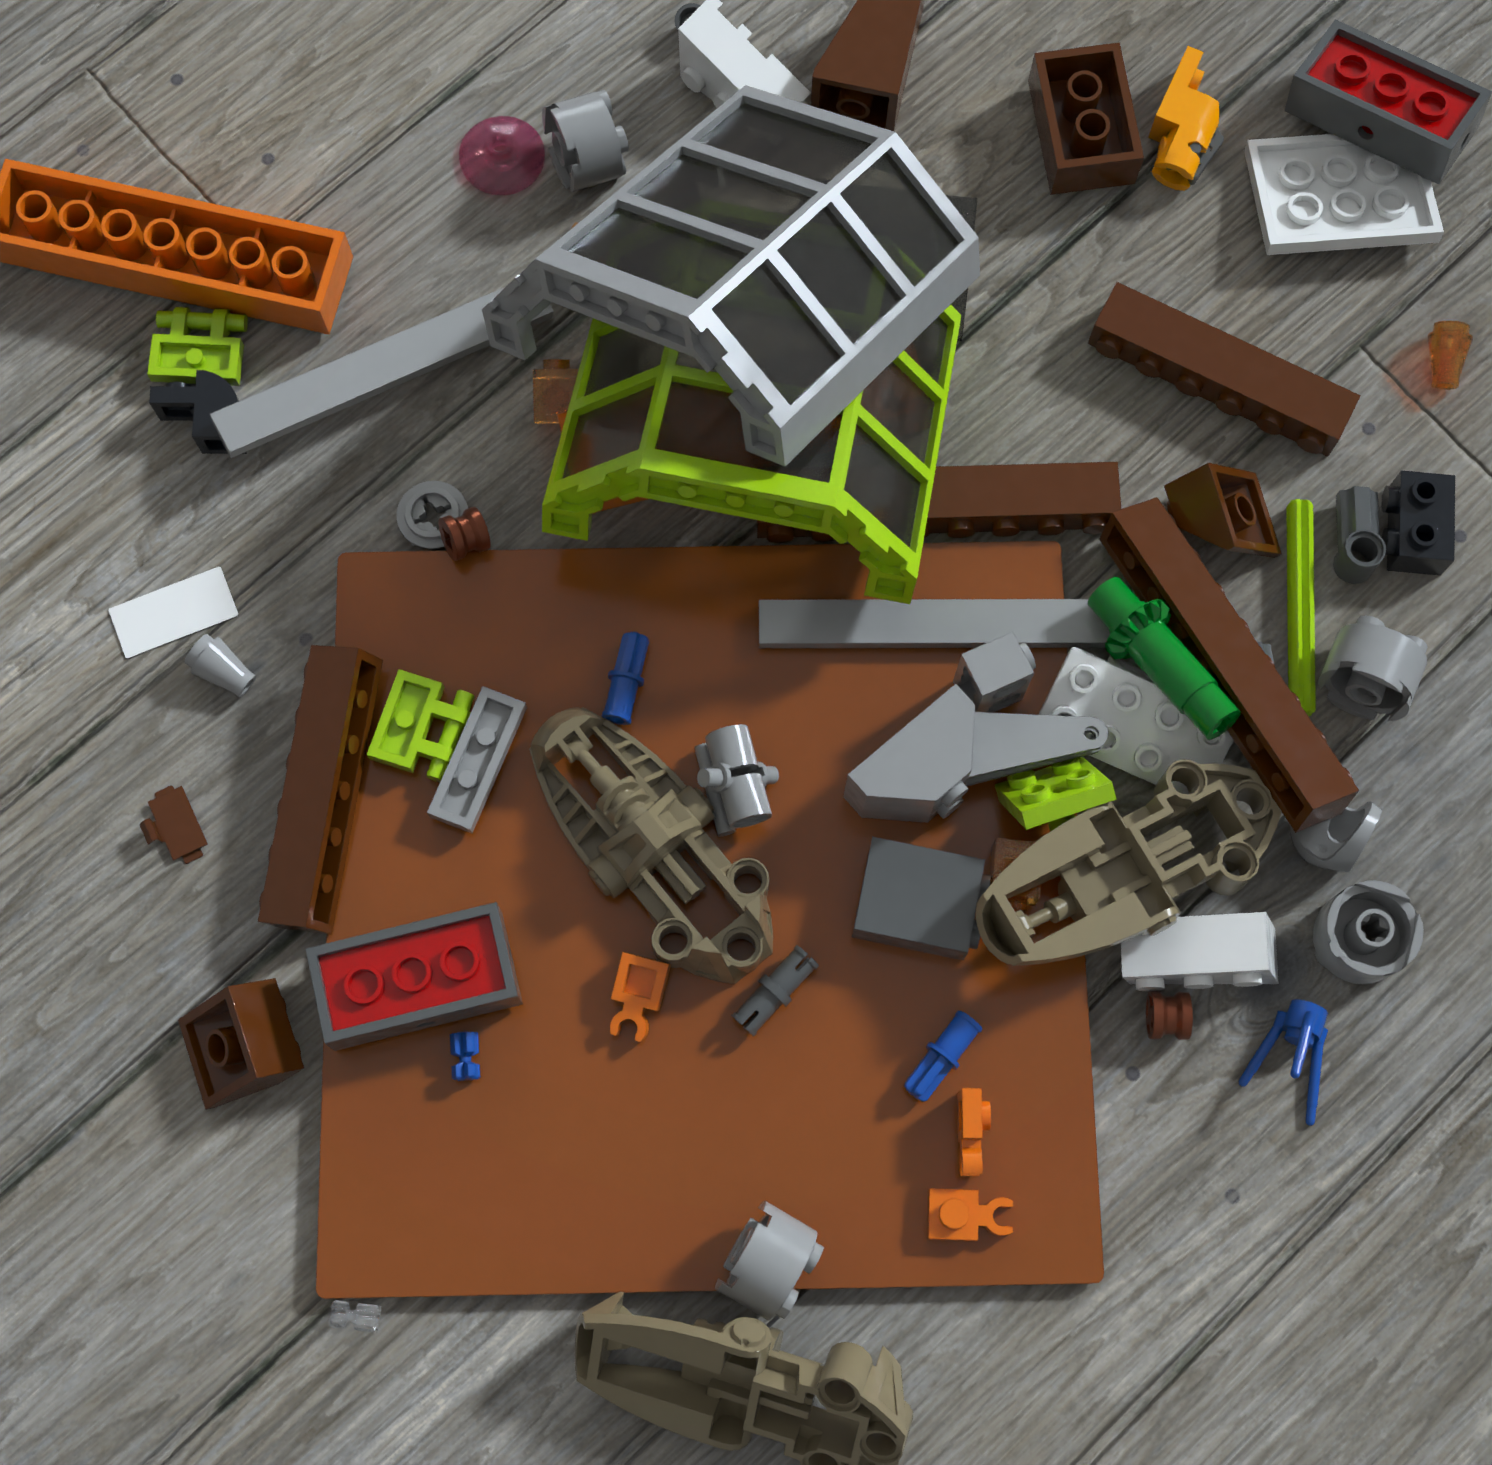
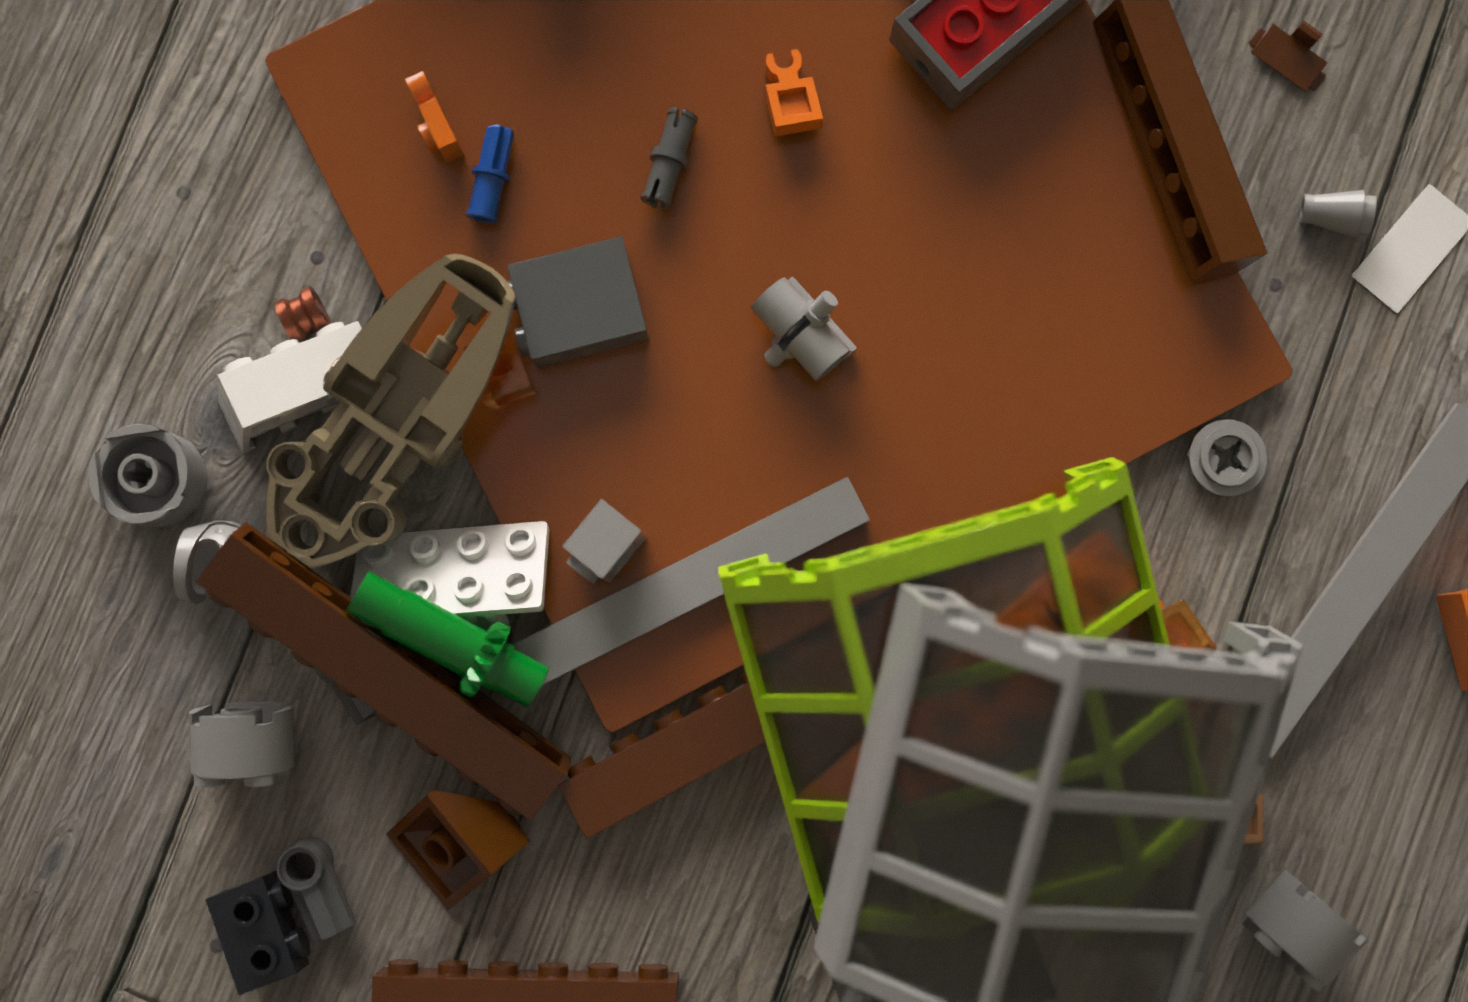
camera: 155 degrees right, 10 degrees up
(407, 720) = (1136, 240): lime plate -> none
(464, 533) = (1186, 444): copper wheel -> none
(477, 759) = (1051, 234): light grey plate -> none
(505, 170) = (1356, 880): clear pink dish -> none
(626, 678) = (955, 381): blue axle -> none
(642, 830) = (860, 239): dark tan piece -> none
(953, 747) = (612, 450): light grey slope -> none
(957, 1215) = (413, 46): orange plate -> none
(1054, 792) = (494, 457): lime plate -> none
(1301, 603) = (344, 785): lime axle -> none
(1304, 1029) = (174, 365): blue plant -> none

